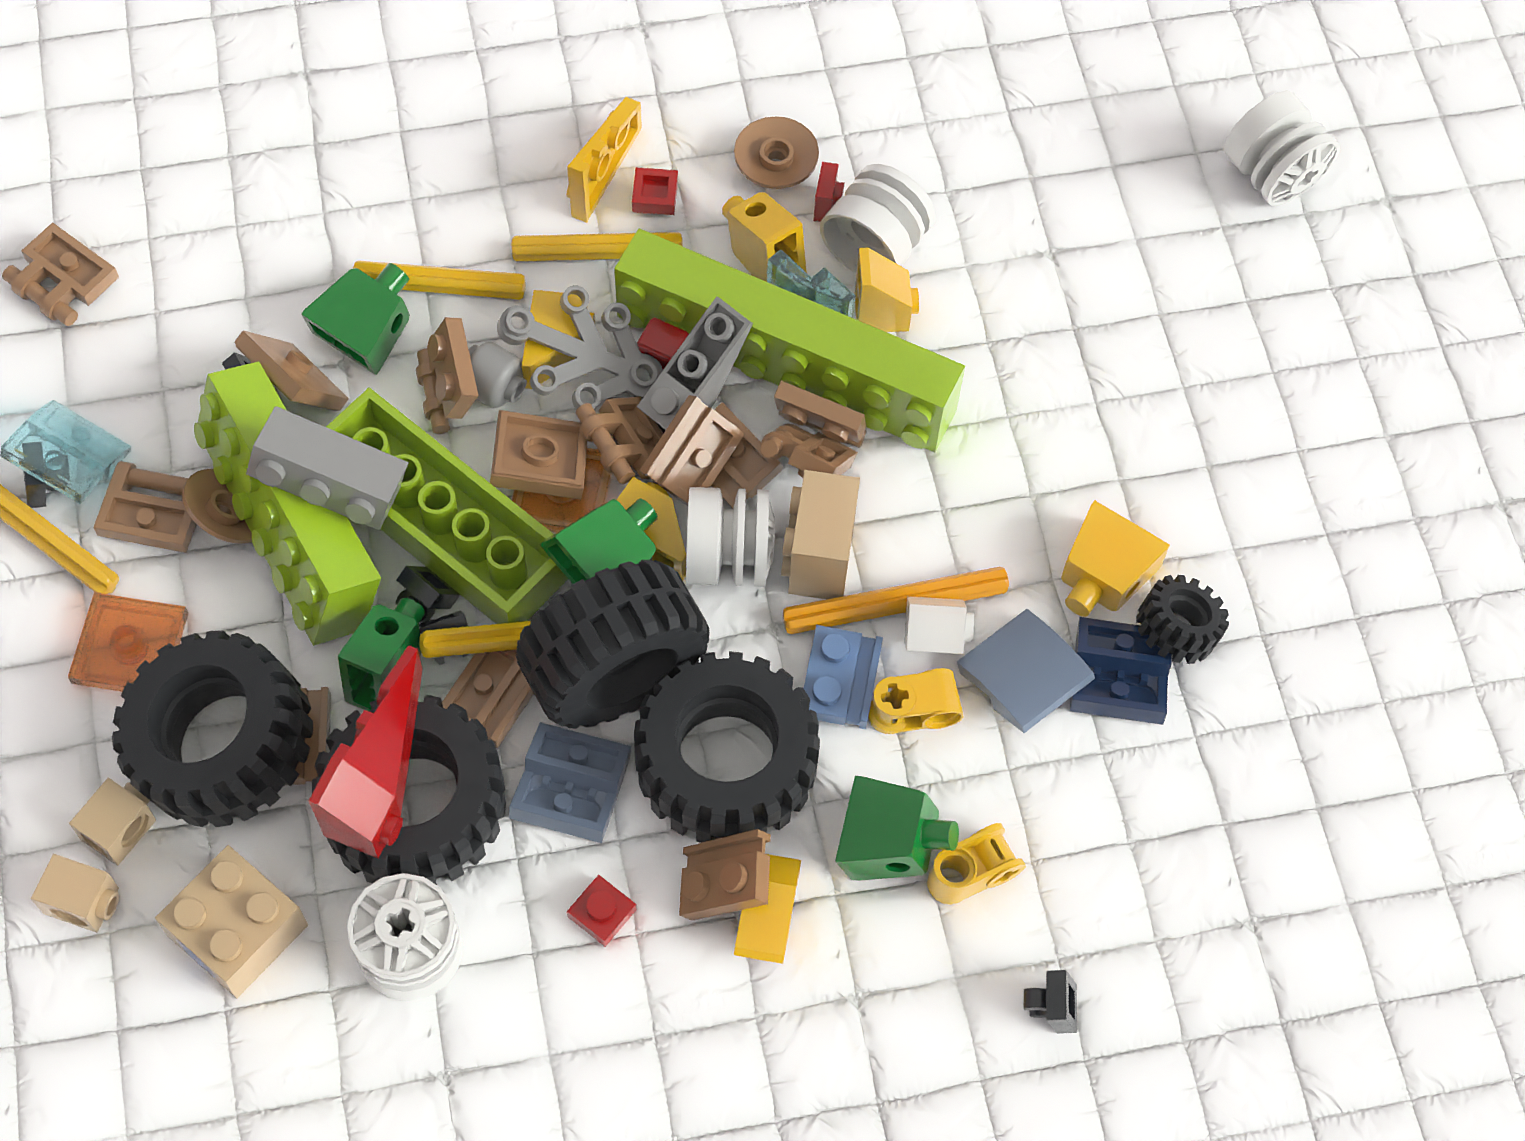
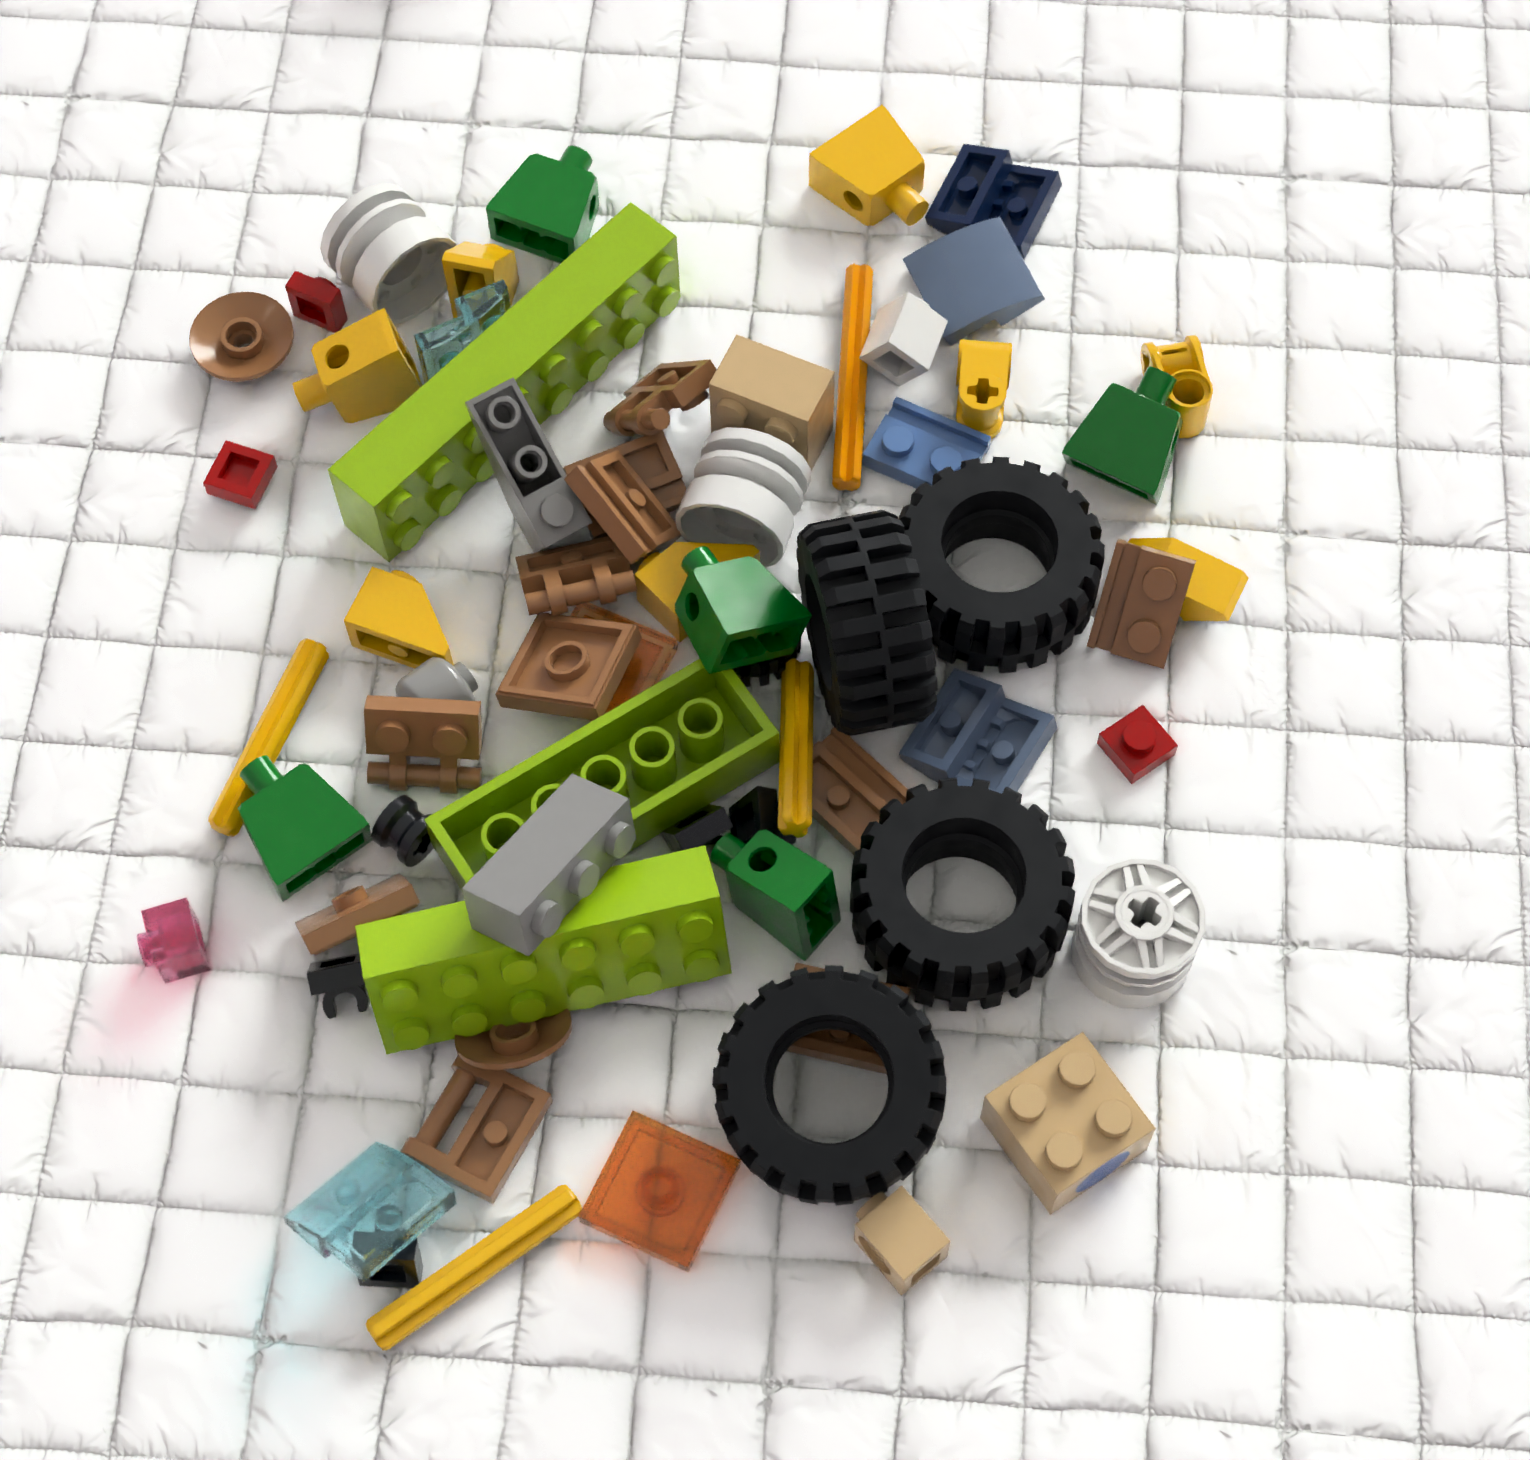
camera: 70 degrees left, 0 degrees up
(66, 262) = (74, 1170): medium nougat plate -> none
(76, 893) = (984, 1297): tan brick -> none
(253, 269) = (173, 941): none -> clear pink plate
(366, 783) = (970, 891): red wedge -> none
(382, 380) = (404, 830): none -> black wheel
(577, 246) = (288, 558): yellow axle -> none
(588, 352) = (485, 549): light grey plant -> none
(601, 157) = (177, 512): yellow wing -> none
(661, 340) = (466, 511): red slope -> none
(820, 414) = (615, 374): medium nougat plate -> none
(981, 325) = (546, 205): none -> green torso
(1054, 1003) = (1342, 350): black tile -> none
(1172, 634) = (962, 124): black tyre -> none

